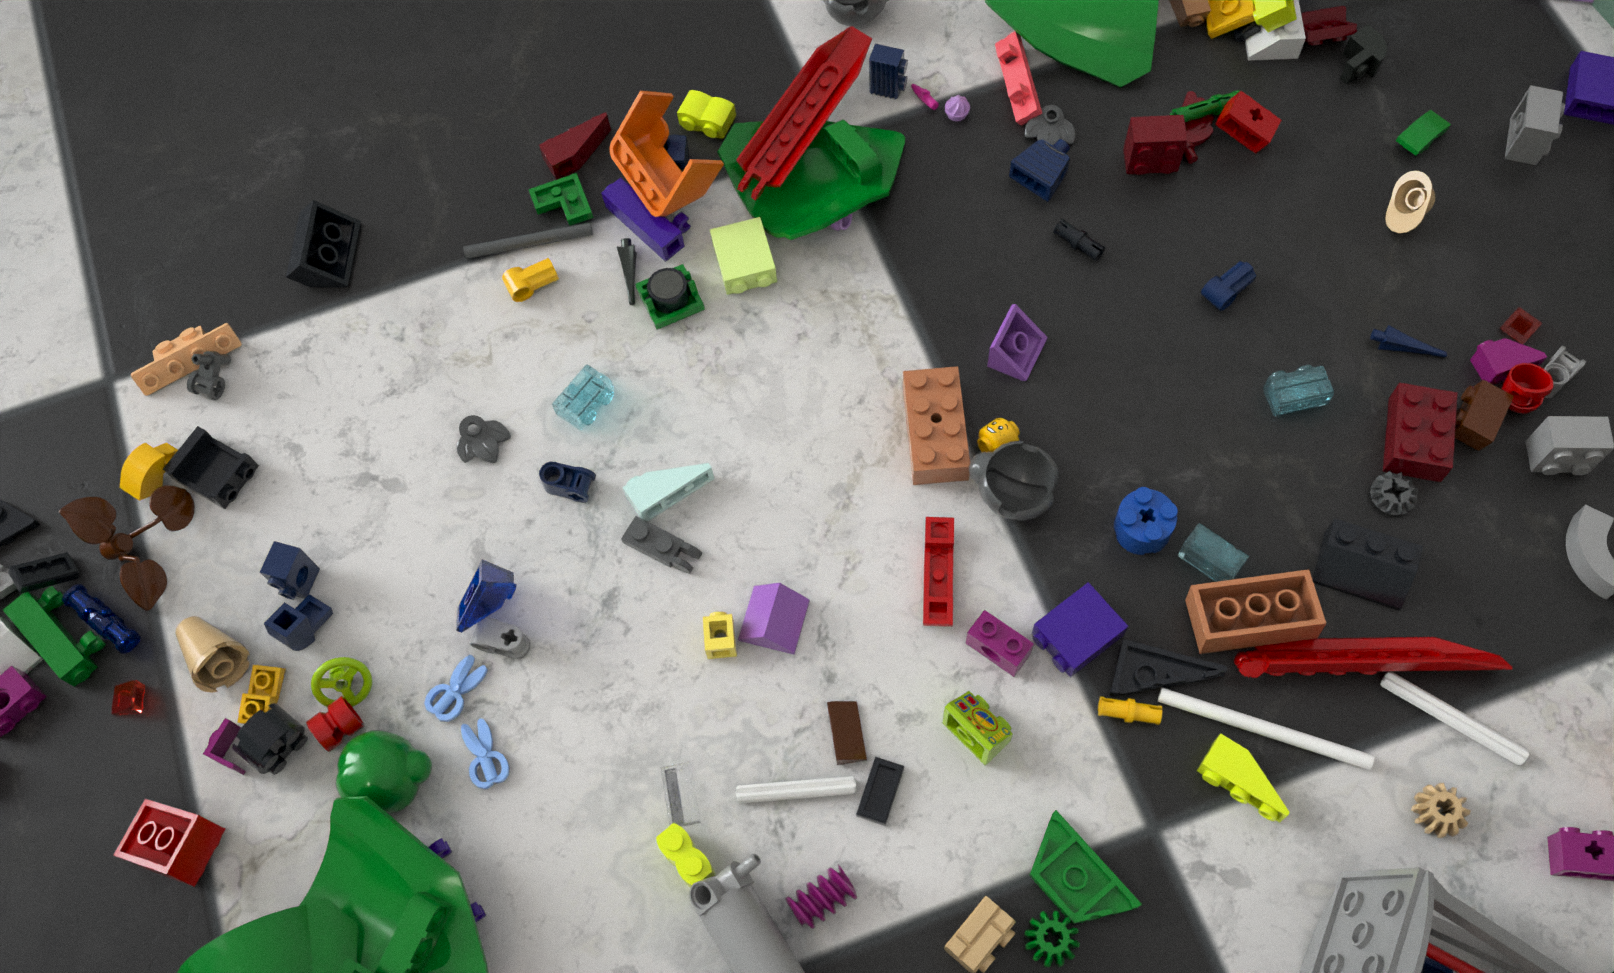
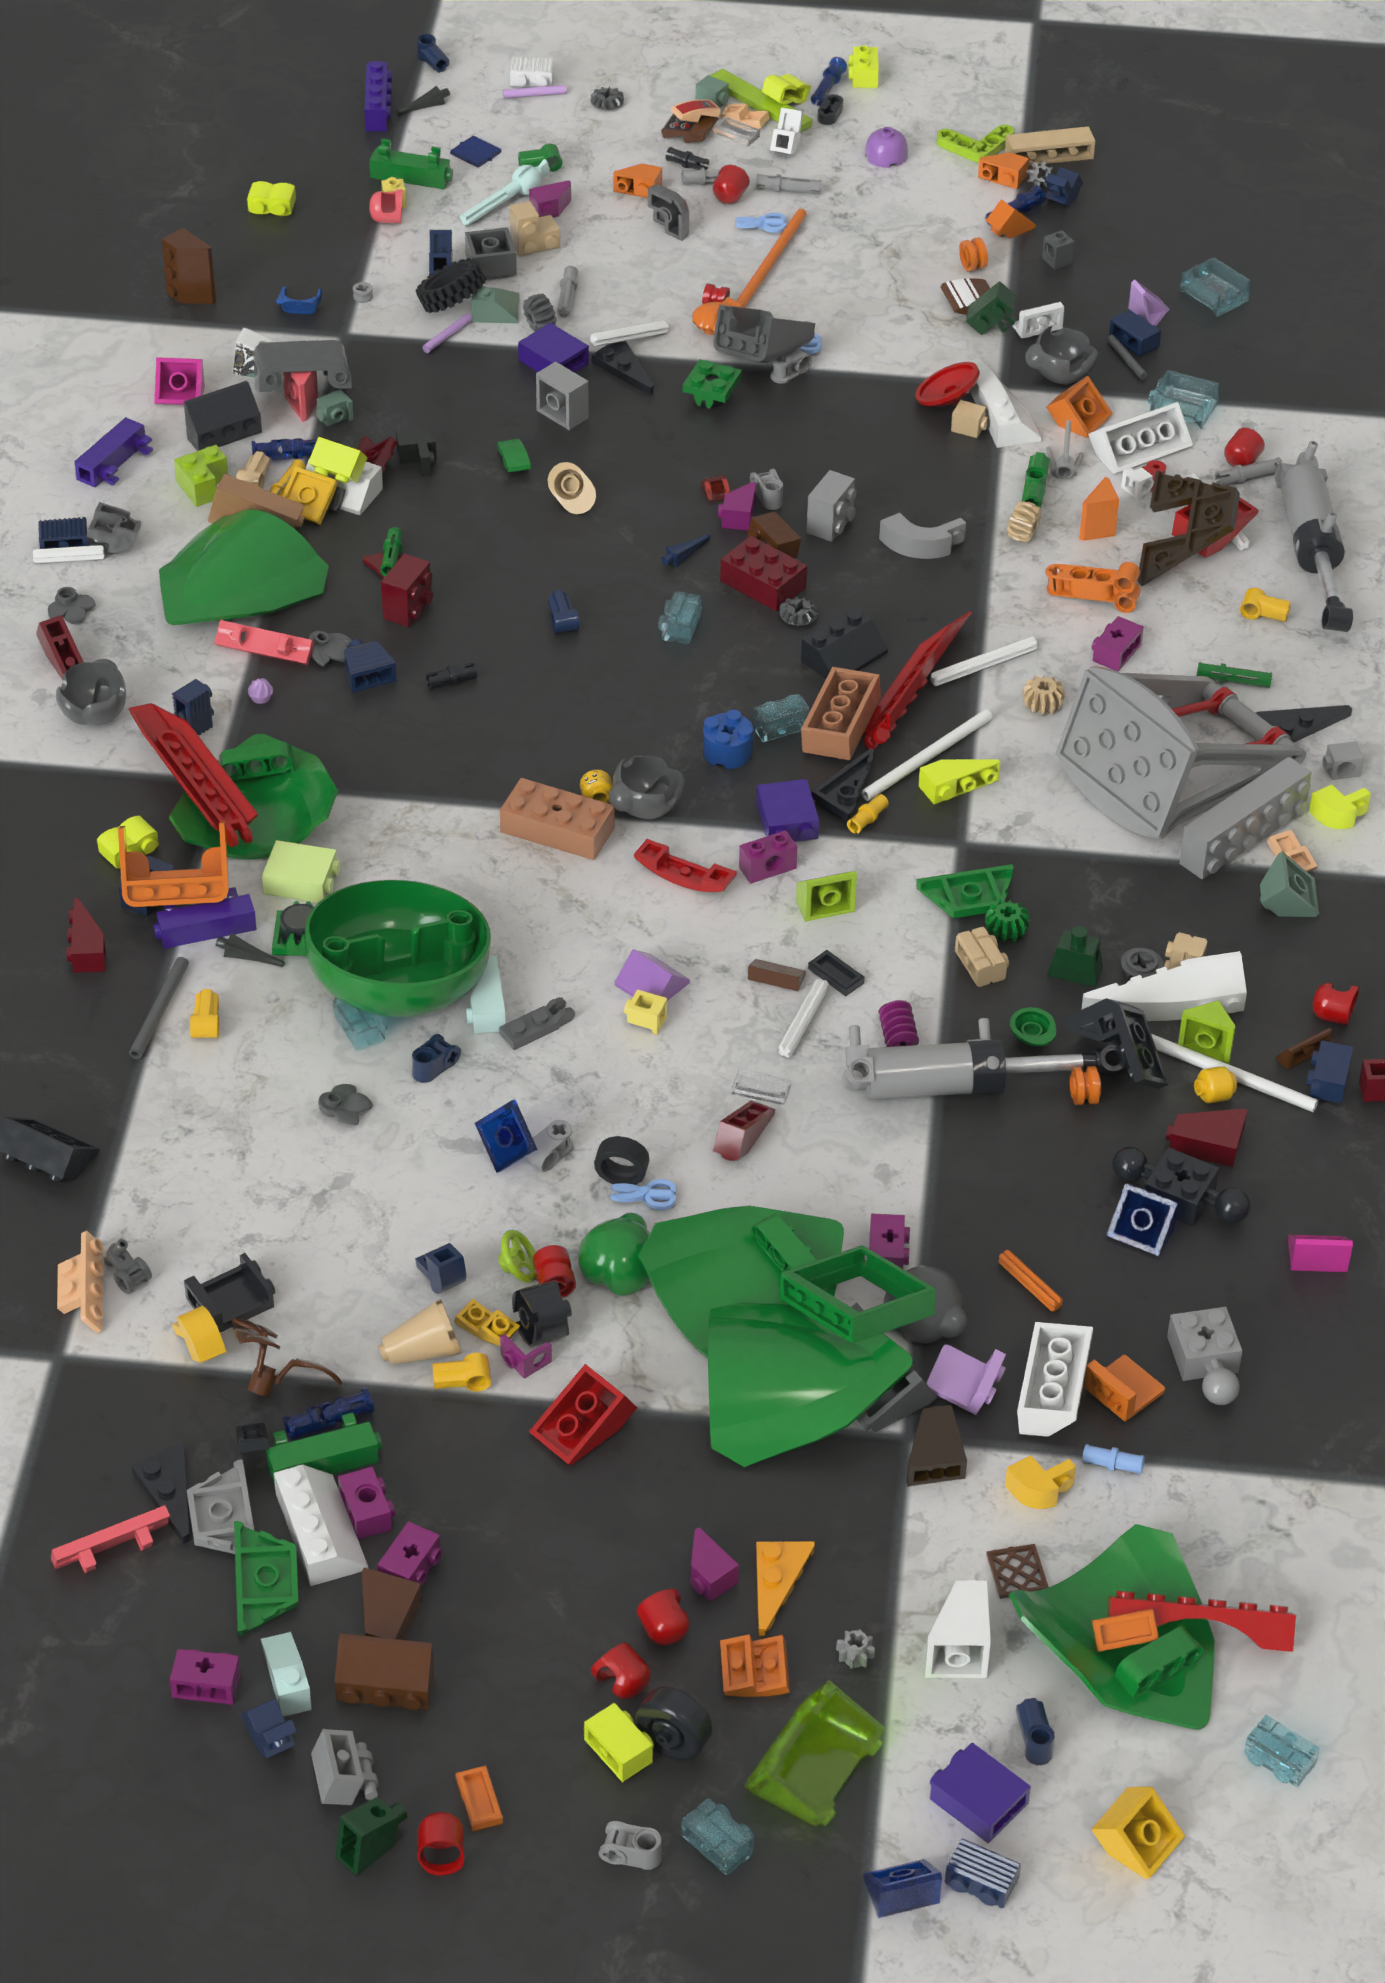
camera: 70 degrees left, 20 degrees down
(128, 698) = (422, 1417): clear red slope -> none
(189, 710) = (471, 1372): none -> yellow piece
(289, 570) = (388, 1254): dark blue brick -> none
(459, 684) = (574, 1195): light blue piece -> none
(495, 714) = (623, 1148): none -> black tyre
(563, 193) = (134, 961): green plate -> none
(606, 807) = (741, 1130): none -> slope
(657, 378) = (397, 946): none -> green cylinder
(681, 852) = (817, 1093): neon yellow brick -> none
(924, 96) = (229, 706): dark pink helmet -> none
(1016, 345) = (518, 749): medium lavender slope -> none
(1248, 122) = (428, 534): red brick -> none
(1529, 387) = (771, 499): red helmet -> none

